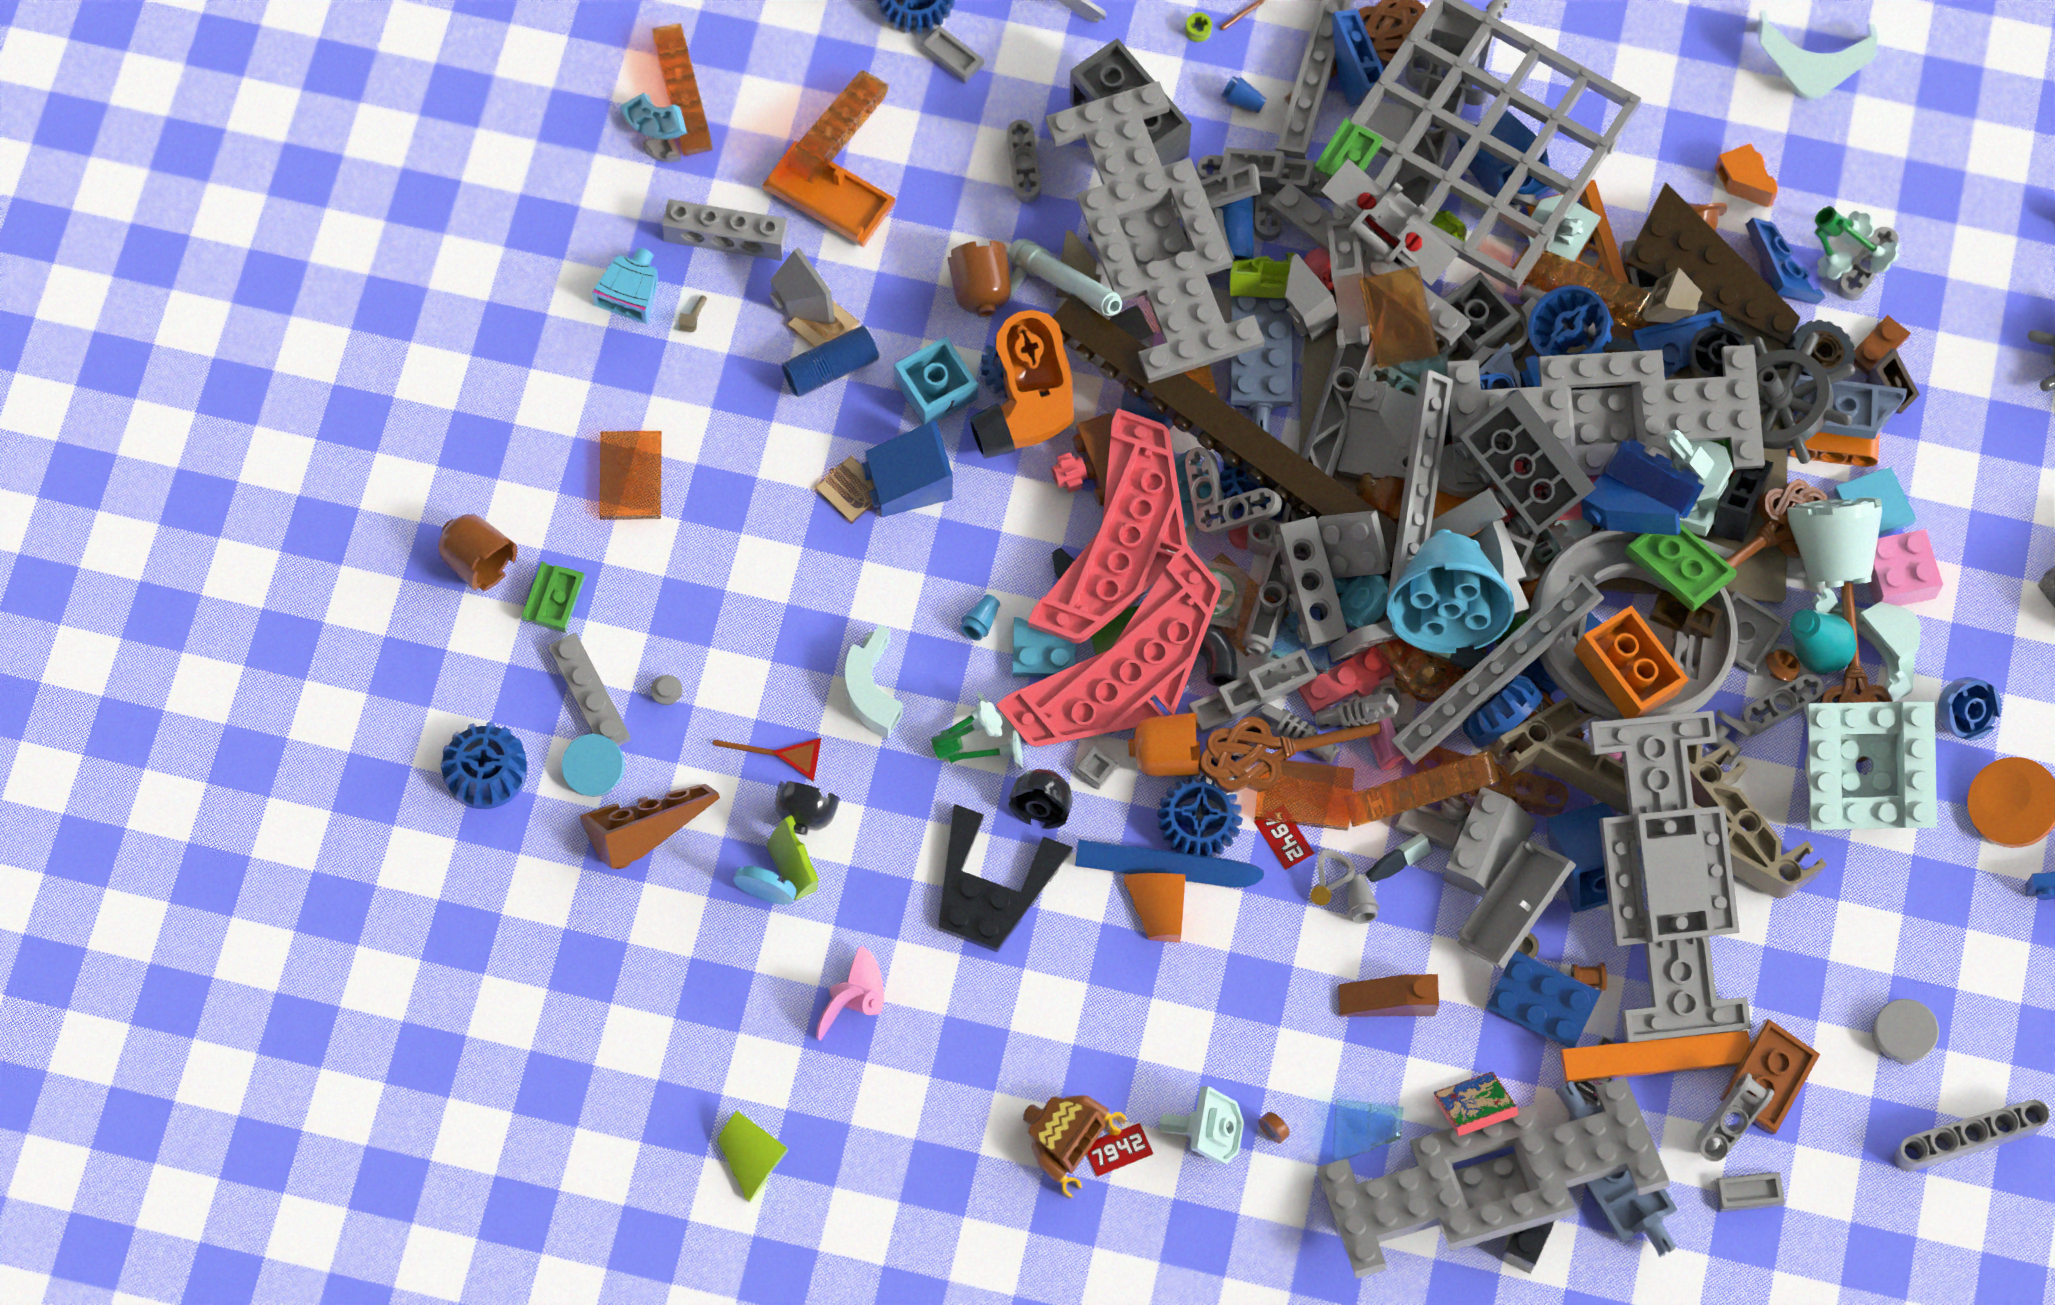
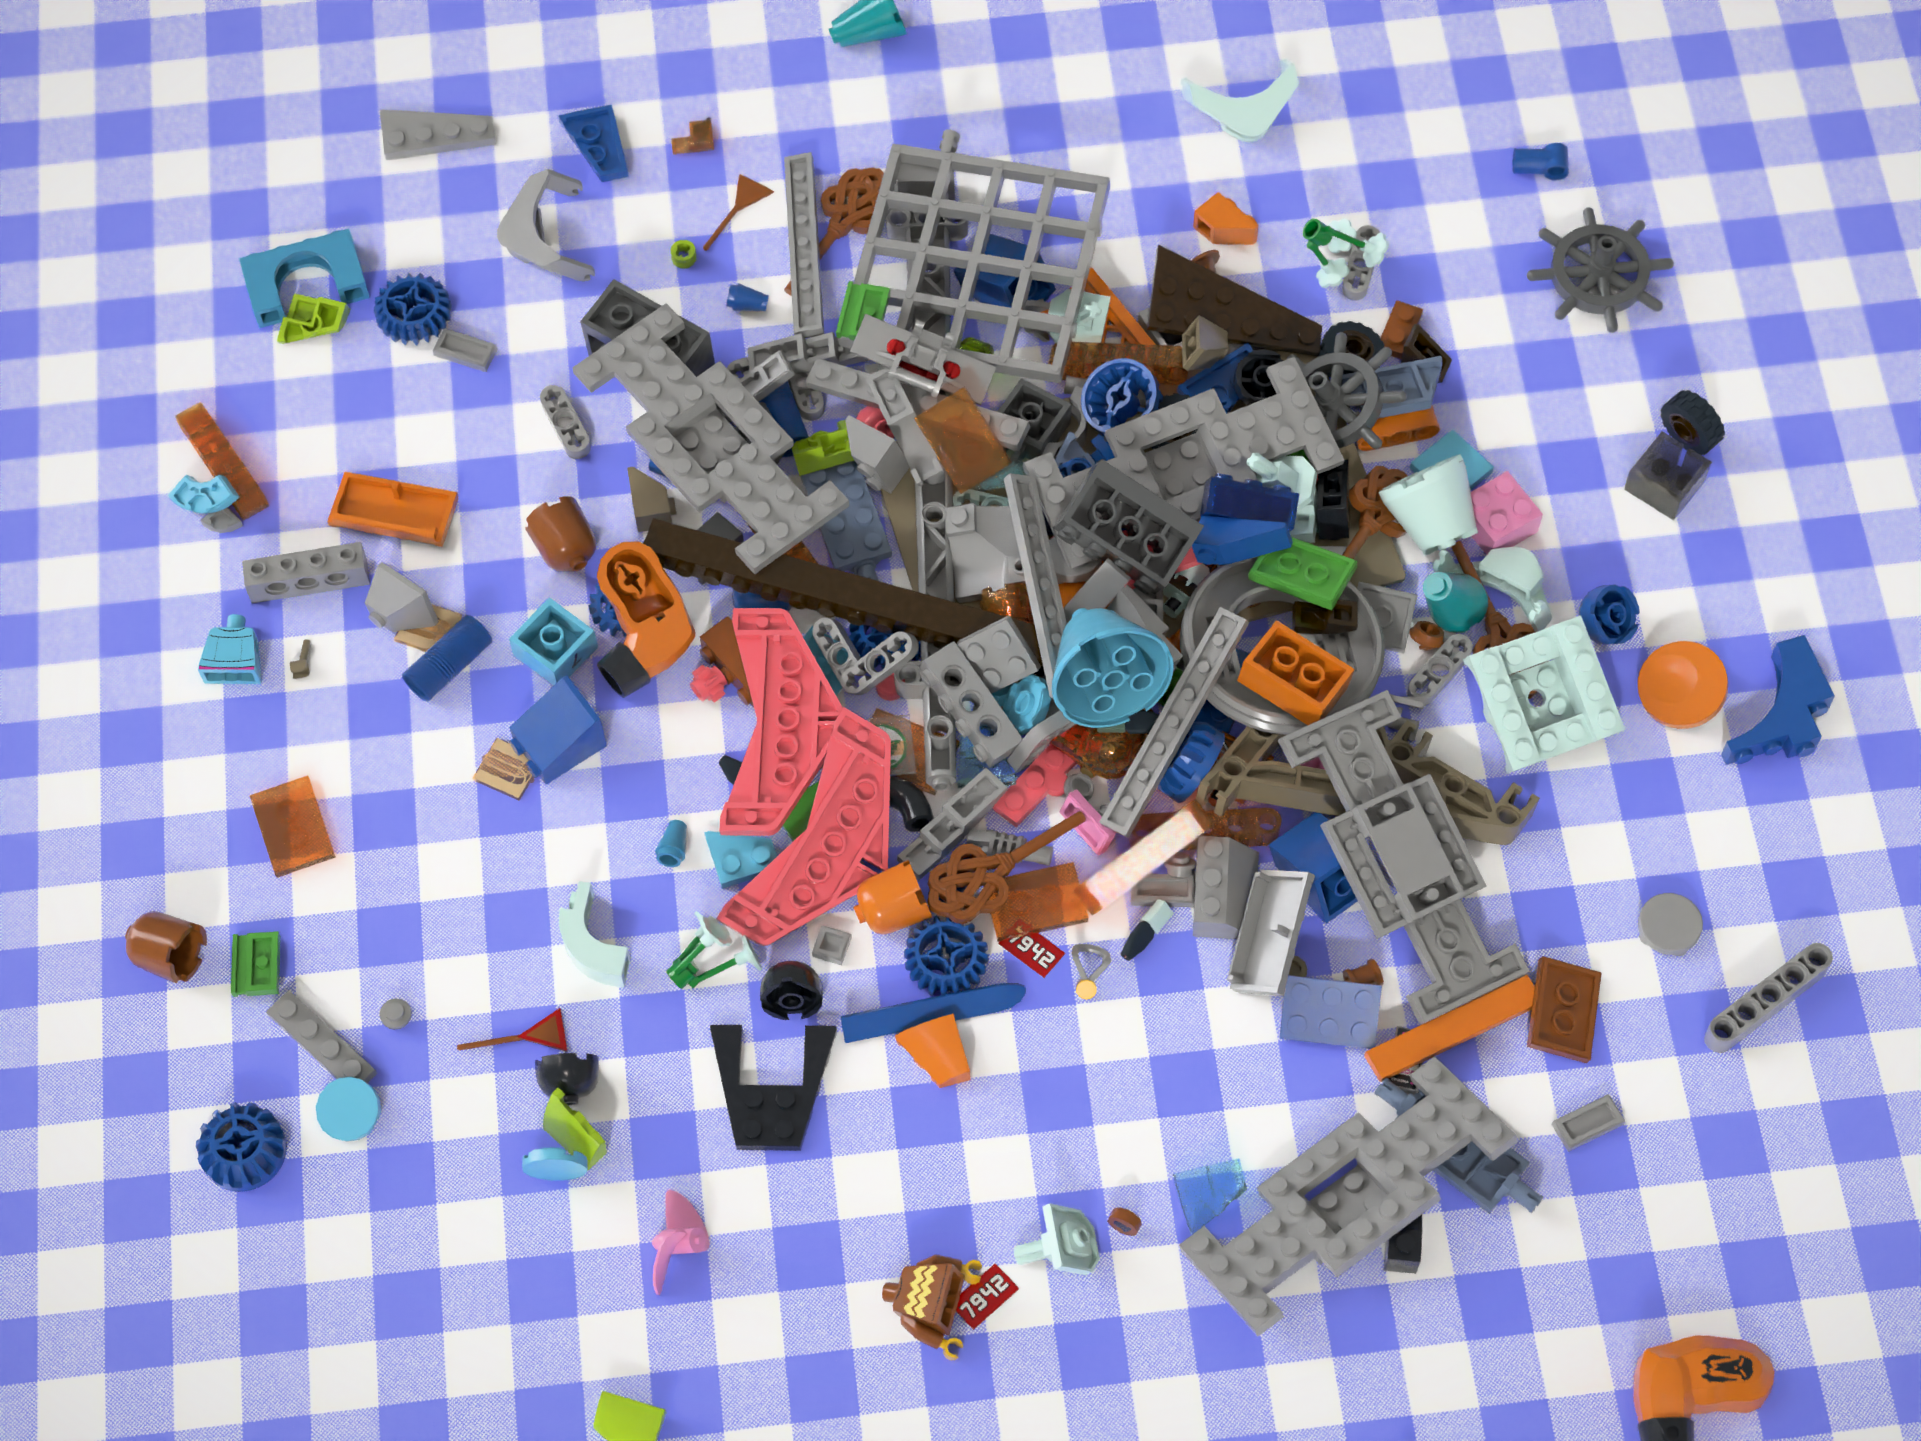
camera: 15 degrees left, 5 degrees down
(634, 831) = (409, 1159): dark orange wedge -> none
(836, 126) = (379, 446): clear orange beam -> none
(1037, 262) = (610, 504): light aqua cylinder -> none
(1355, 56) = (837, 232): blue slope -> none
(1358, 712) = (1058, 807): light grey hinge -> none
(1361, 901) = (1126, 981): light grey cone -> none
(1390, 996) = (1187, 1059): dark orange slope -> none
(1475, 1103) = (1305, 1130): tile -> none
(1738, 1101) = (1559, 1045): light grey piece -> none
(1775, 257) = (1277, 281): blue wing -> none

